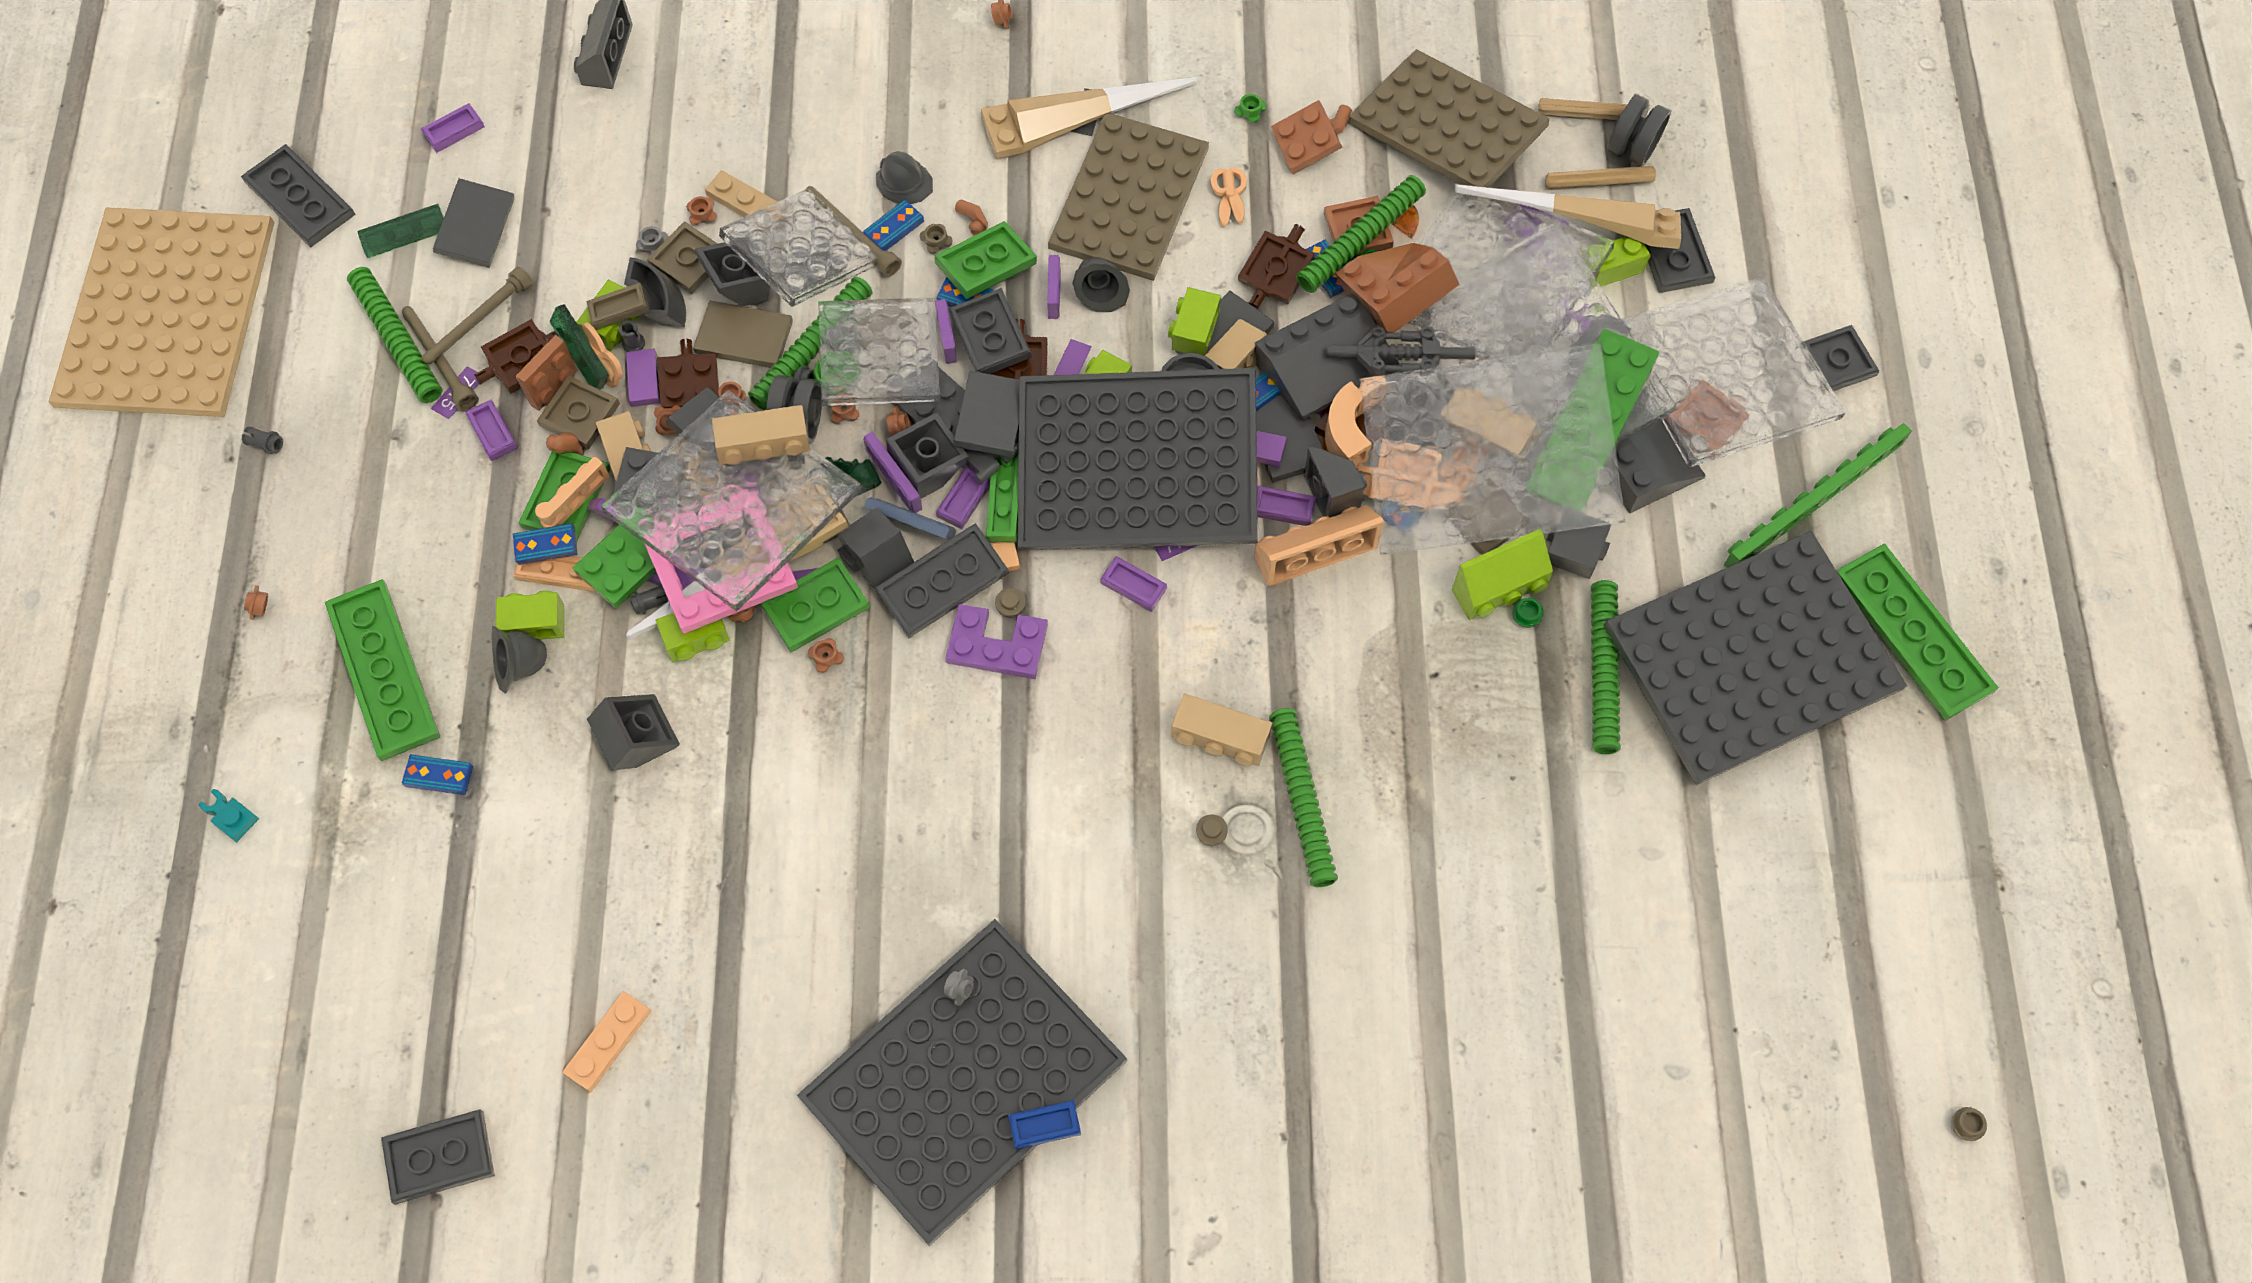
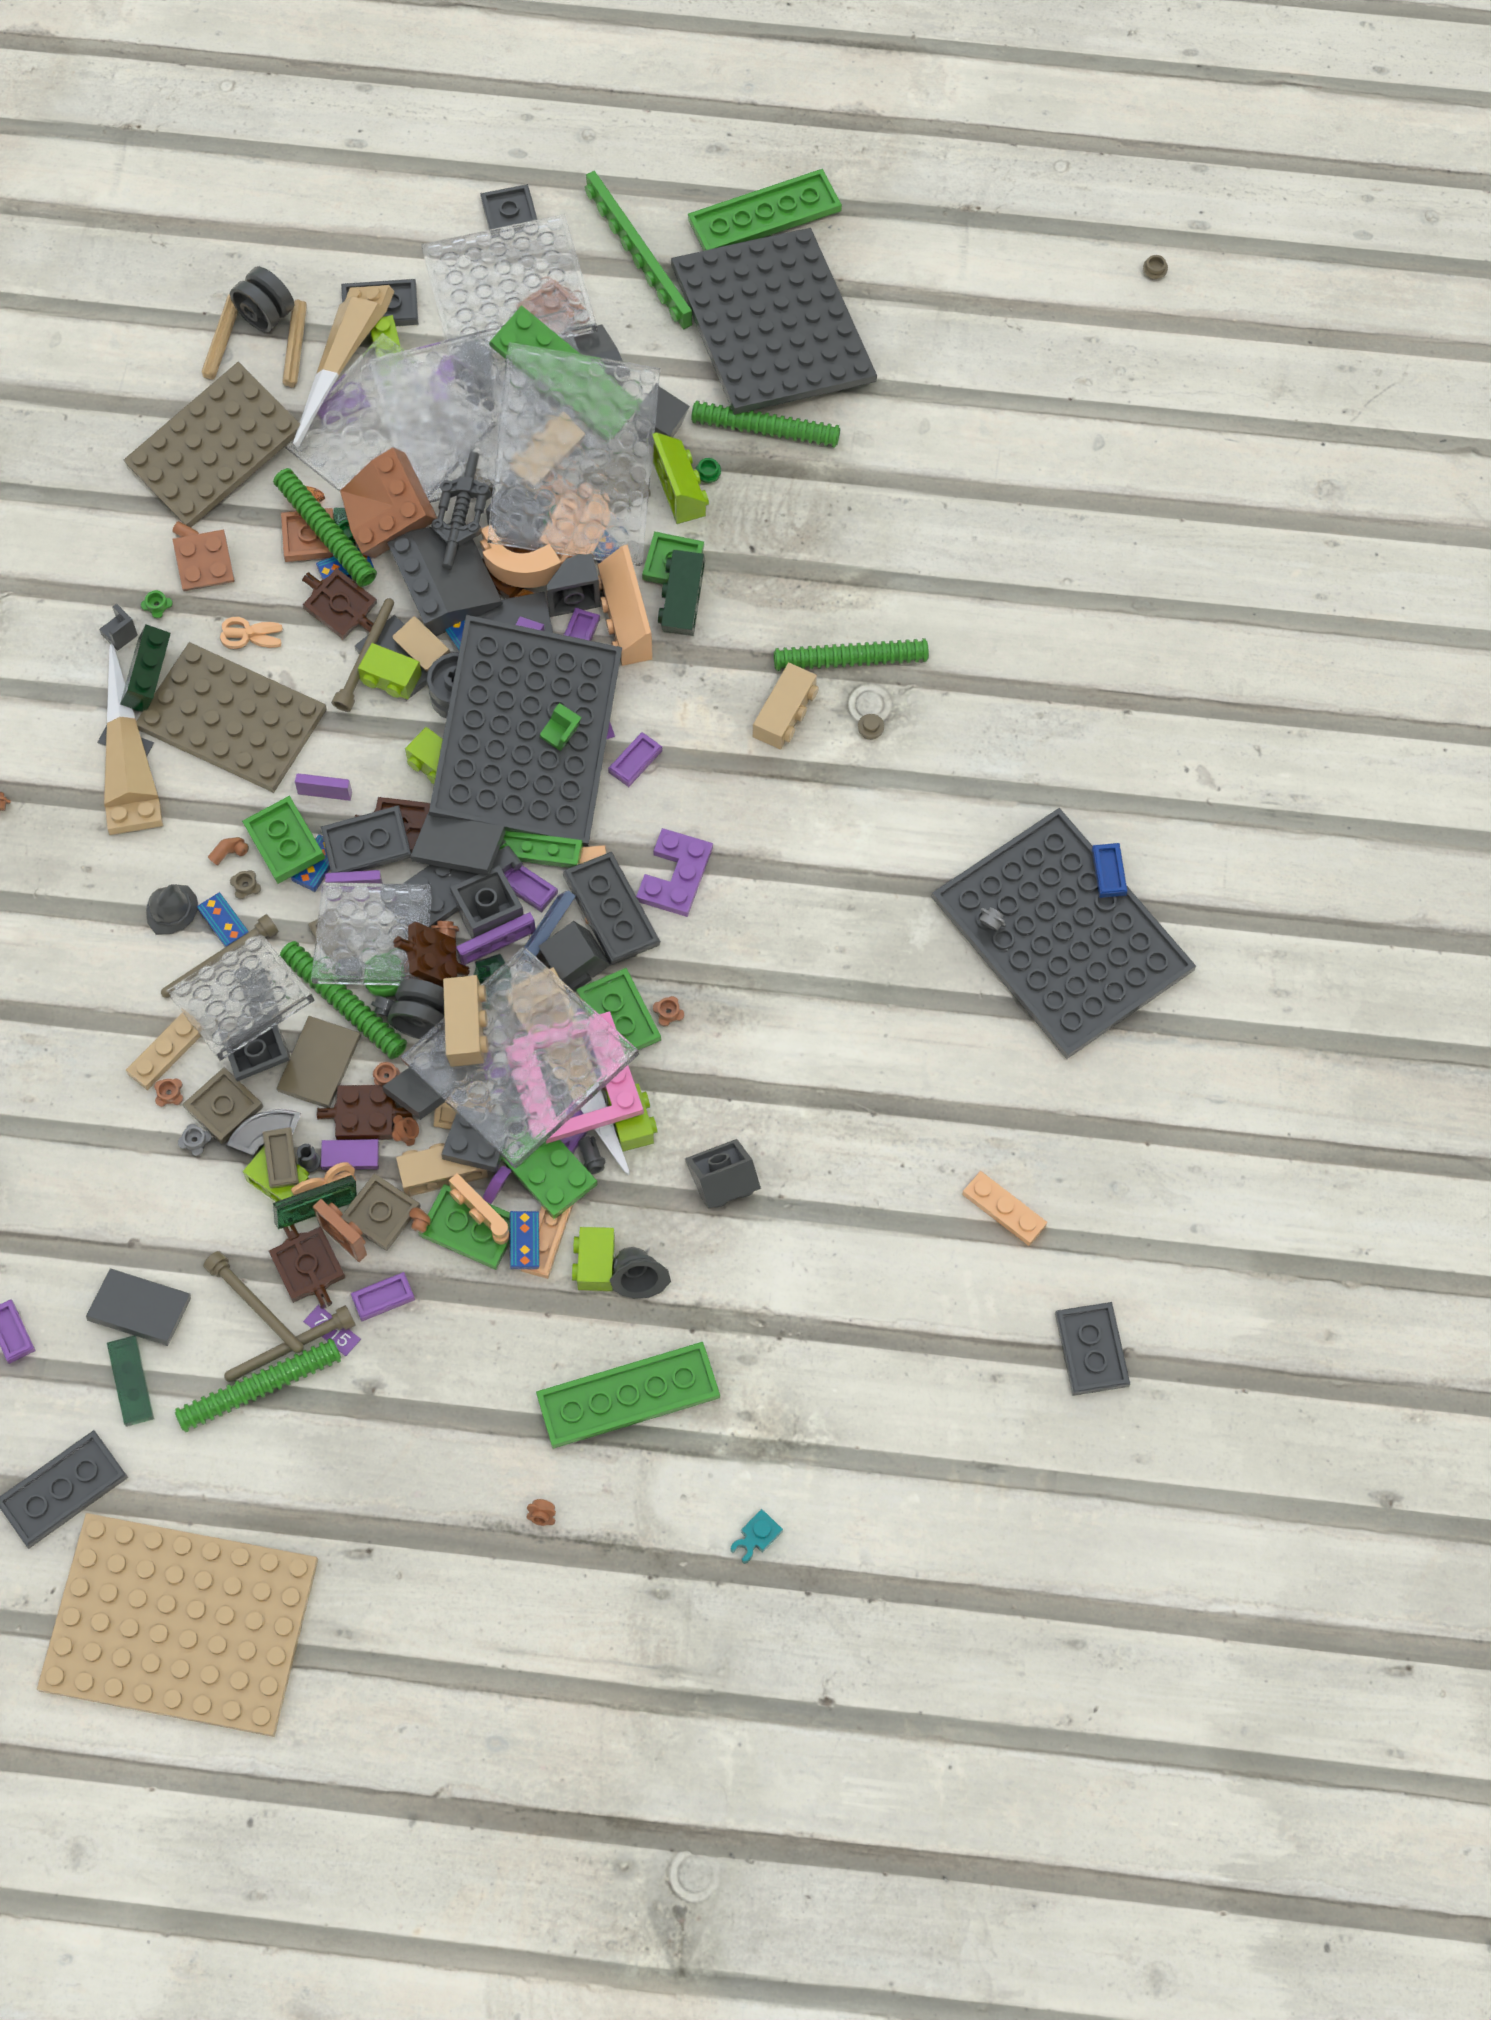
camera: 85 degrees left, 0 degrees up
(268, 441) = (358, 1511): dark grey pin -> none
(437, 774) = (740, 1347): blue tile -> none
(851, 405) = (430, 954): none -> reddish brown plate
(1010, 602) = (640, 856): dark tan plate -> none
(1073, 358) = (403, 786): medium lavender sticker -> none
(1100, 285) = (329, 745): dark grey piece -> none
(1139, 489) = (560, 727): none -> bright green panel
(1163, 291) = (344, 698): none -> dark tan piece
(1165, 105) = (145, 668): none -> dark green brick
(1211, 80) = (120, 629): none -> dark grey panel
(1347, 598) = (682, 592): none -> dark green brick
(1396, 589) = (661, 548): none -> bright green plate

